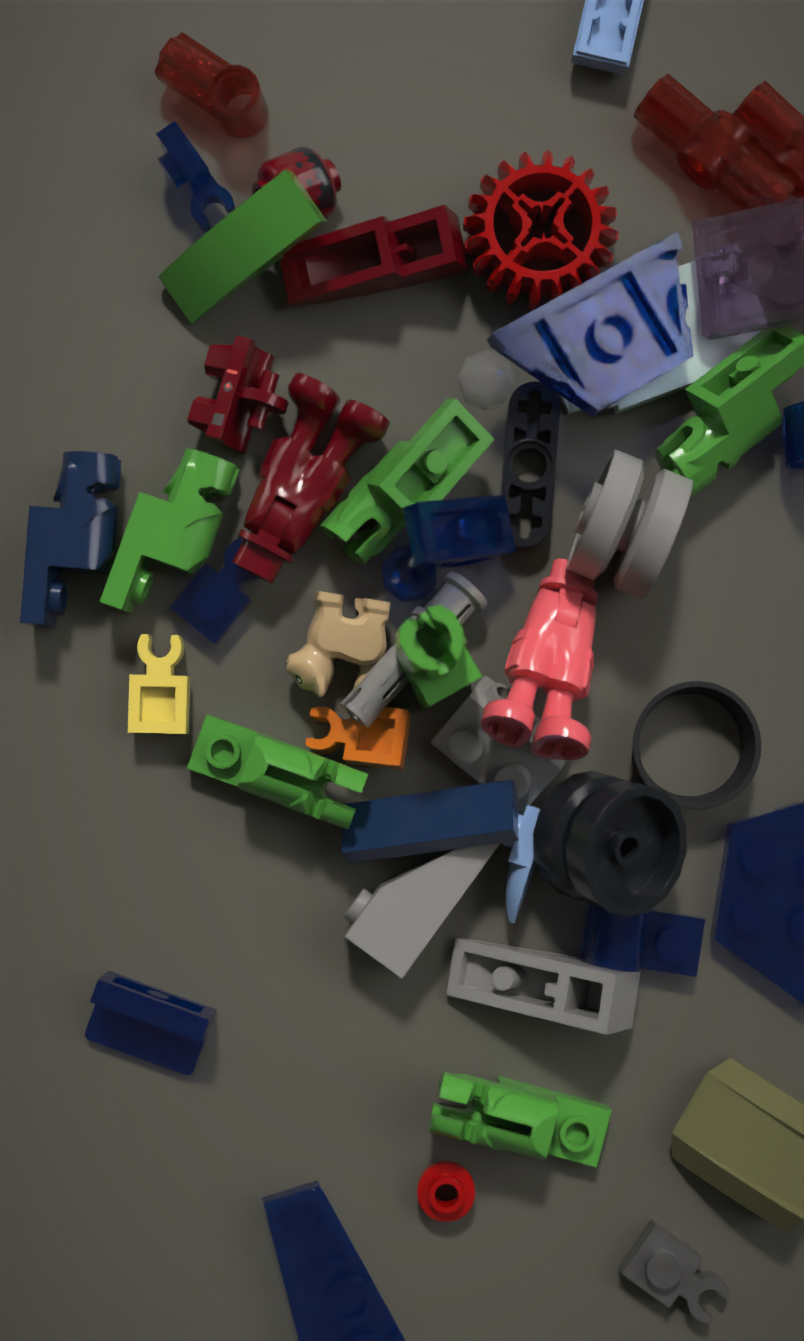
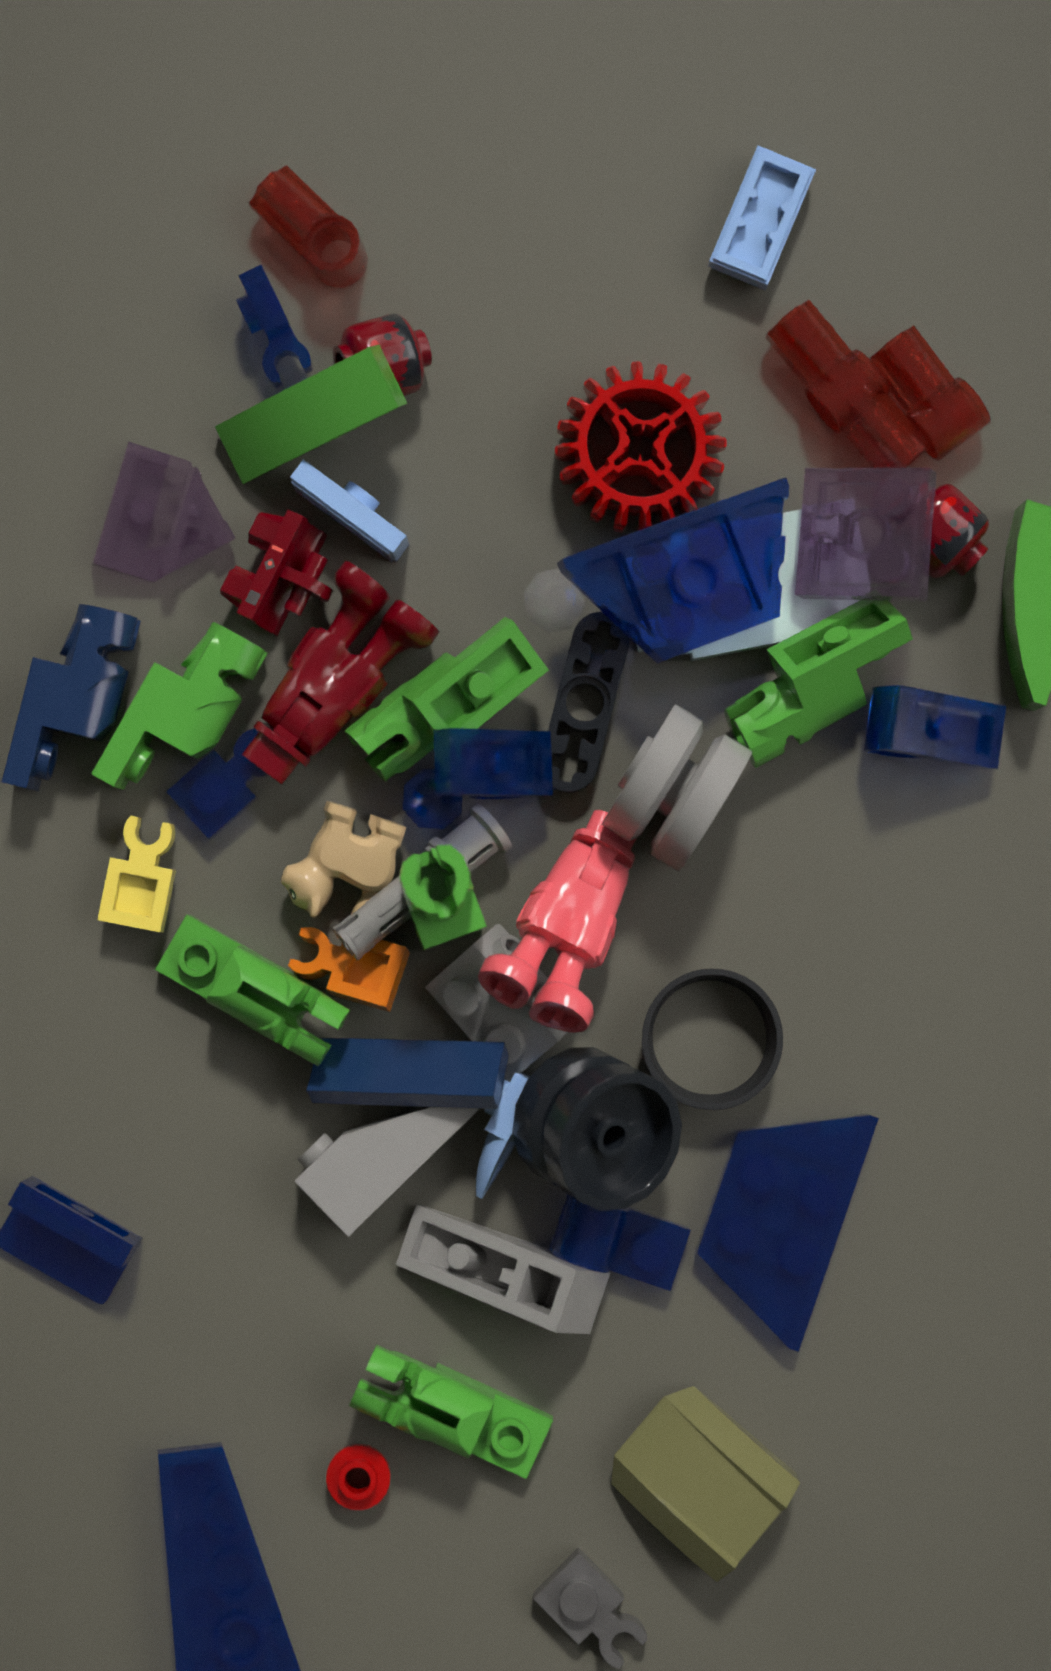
camera: 10 degrees right, 0 degrees up
(121, 366) = (158, 517): none -> clear purple slope
(291, 328) = (350, 508): none -> light blue plate
(375, 257) = (455, 447): dark red slope -> none

